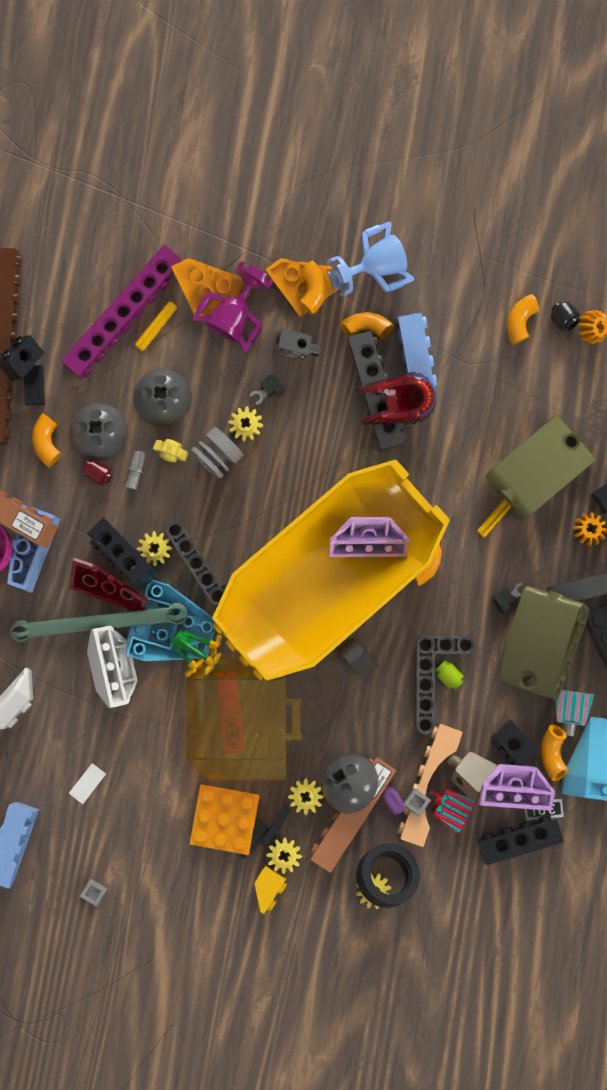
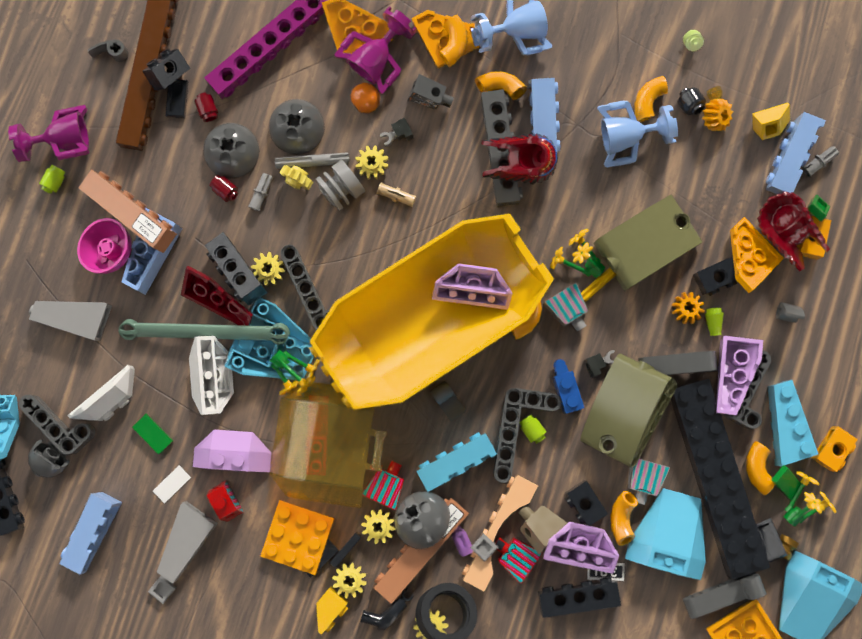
camera: 10 degrees right, 0 degrees up
(42, 440) = (176, 152): light orange cylinder -> none
(60, 734) = (152, 434): none -> green tile
(66, 390) = (206, 107): none -> dark red brick
(111, 836) = (185, 540): none -> light grey slope
(145, 741) = (232, 452): none -> lavender wedge
(145, 793) = (224, 502): none -> red torso
(156, 326) = (300, 58): yellow axle -> none
(183, 430) = (311, 160): none -> light grey axle
(229, 357) = (365, 97): none -> orange hair
(275, 454) = (396, 194): none -> tan pin
(307, 754) = (386, 486): none -> torso
(330, 886) = (389, 616): none -> black arm
(376, 719) = (456, 462): none -> medium azure wedge
(468, 545) = (568, 307): none -> torso
(478, 628) = (566, 388): none -> blue hinge
(487, 499) = (593, 265): none -> plant
(501, 358) = (625, 132): none -> light blue piece
(558, 252) = (693, 40): none -> yellowish green wheel
(587, 304) = (714, 93): none -> clear yellow hinge

